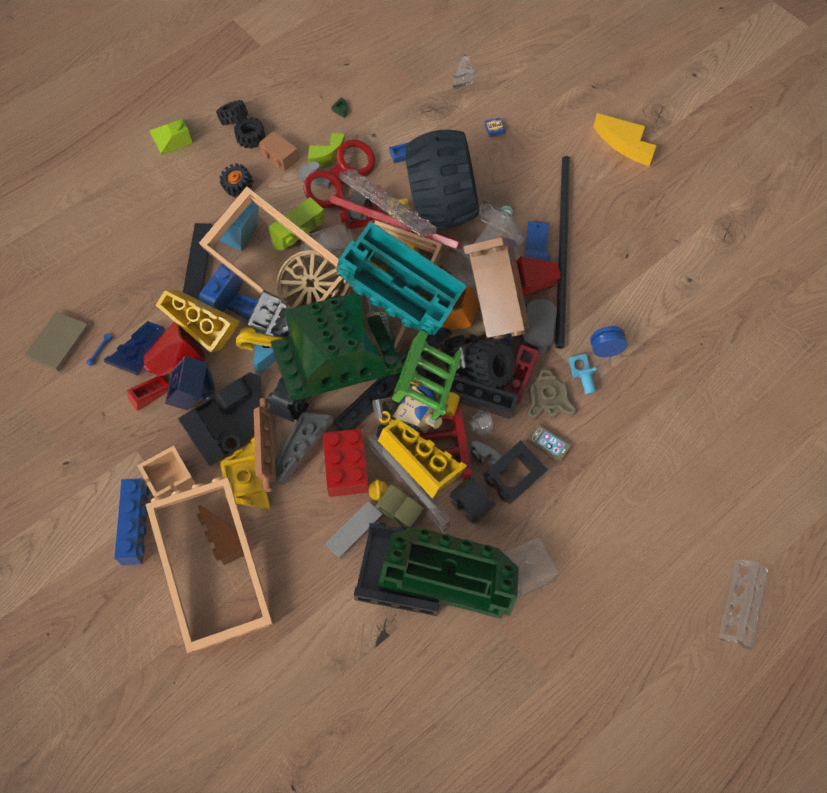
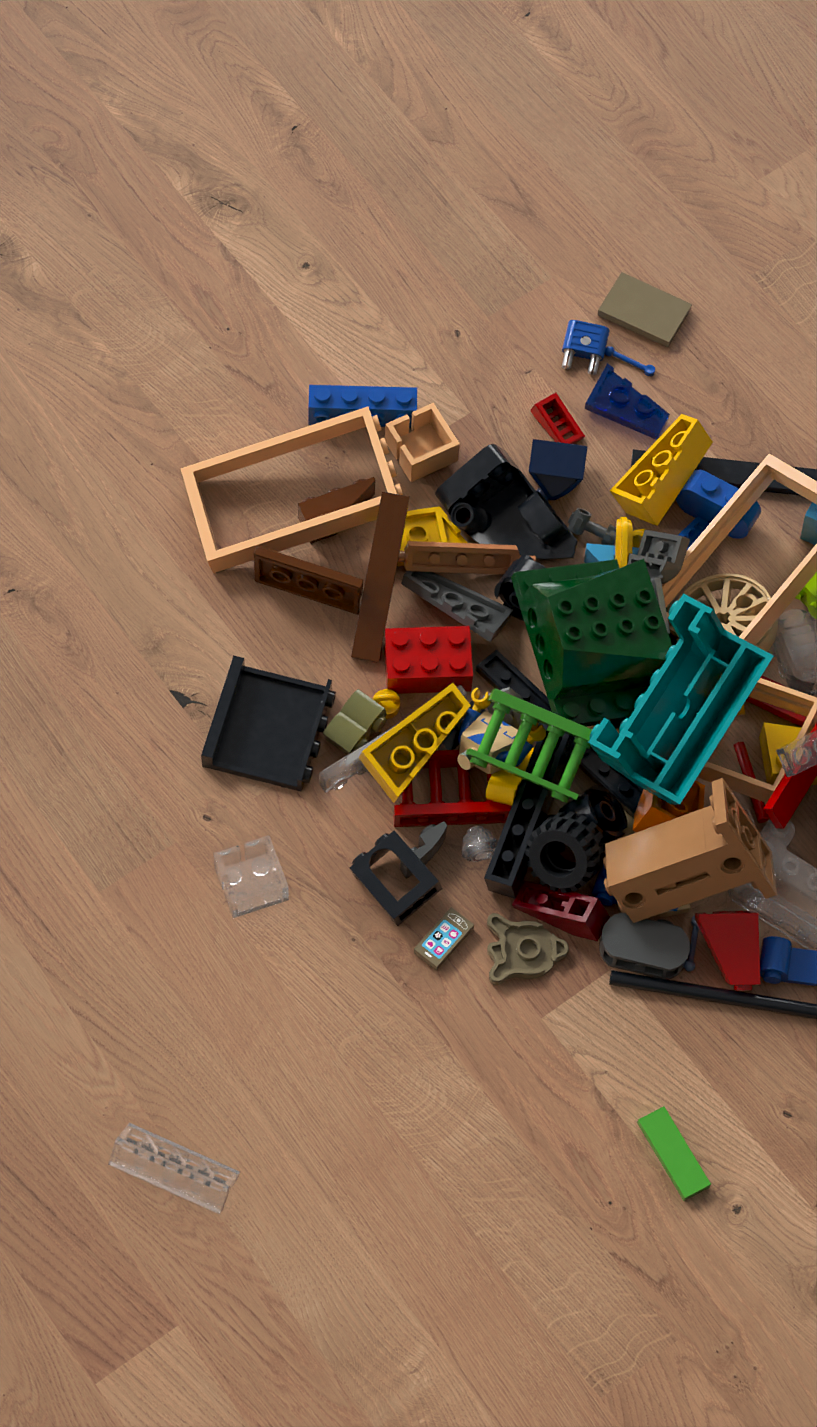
camera: 90 degrees right, 0 degrees up
(82, 376) = (585, 341): none -> blue piece
(170, 350) = (612, 444): red slope -> none
(232, 372) = (581, 521): none -> dark grey bar
(285, 492) = (380, 577): none -> reddish brown tile
(287, 546) = (308, 580): none -> reddish brown tile
(353, 530) = (328, 665): light grey tile -> none
(450, 571) = (255, 761): dark green wedge -> none
(472, 499) = (355, 813): black brick -> none
(585, 374) = (557, 1002): medium azure bracket -> none
(608, 341) = (608, 1041): blue head -> none
(665, 310) = (674, 1153): none -> bright green tile

